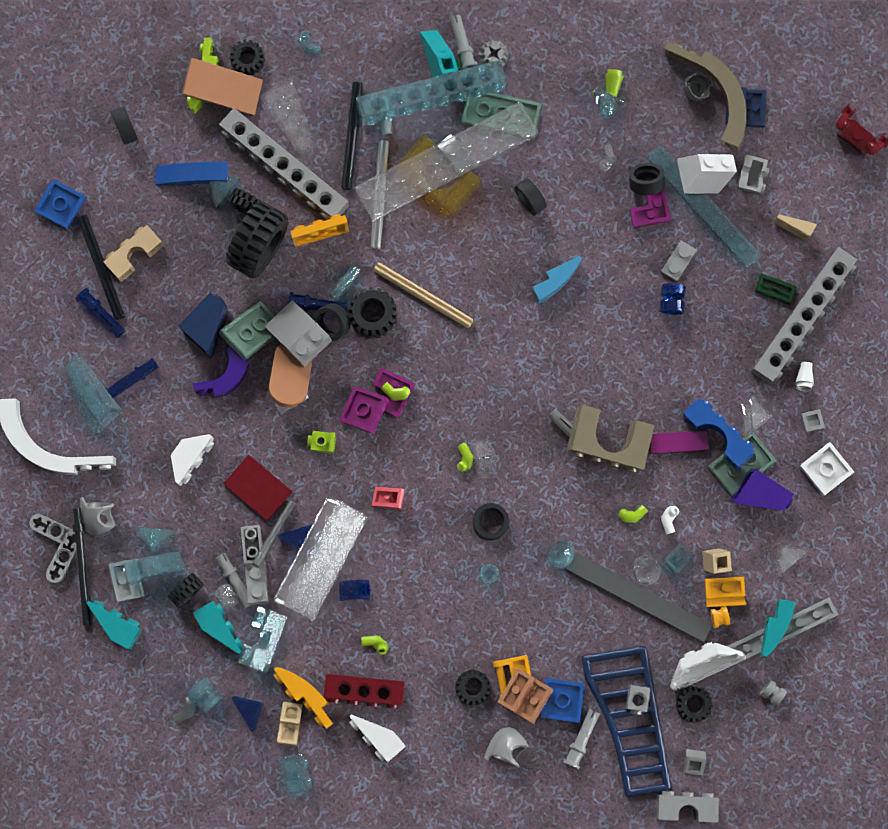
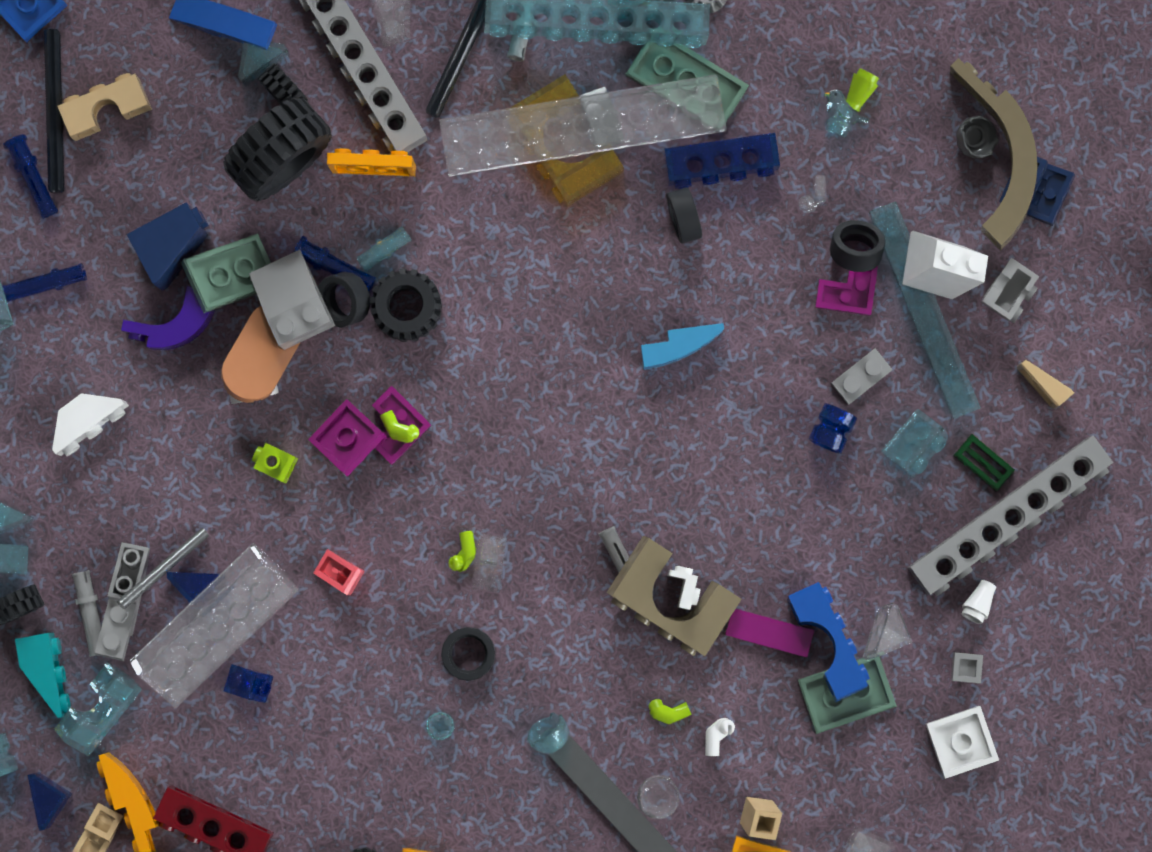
camera: 25 degrees right, 5 degrees up
(226, 596) = (69, 632): clear wheel -> none
(258, 487) = (165, 495): dark red tile -> none
(377, 642) = (254, 767): lime arm -> none
(382, 159) = (490, 103): light grey axle -> none
(423, 295) = (486, 303): tan axle -> none
(546, 146) = (763, 146): none -> clear blue brick
(618, 431) = (689, 594): none -> white bracket
(676, 560) = (707, 796): clear light blue slope -> none
(728, 291) = (916, 443): none -> clear light blue bracket
(762, 492) = (858, 745): dark purple slope -> none

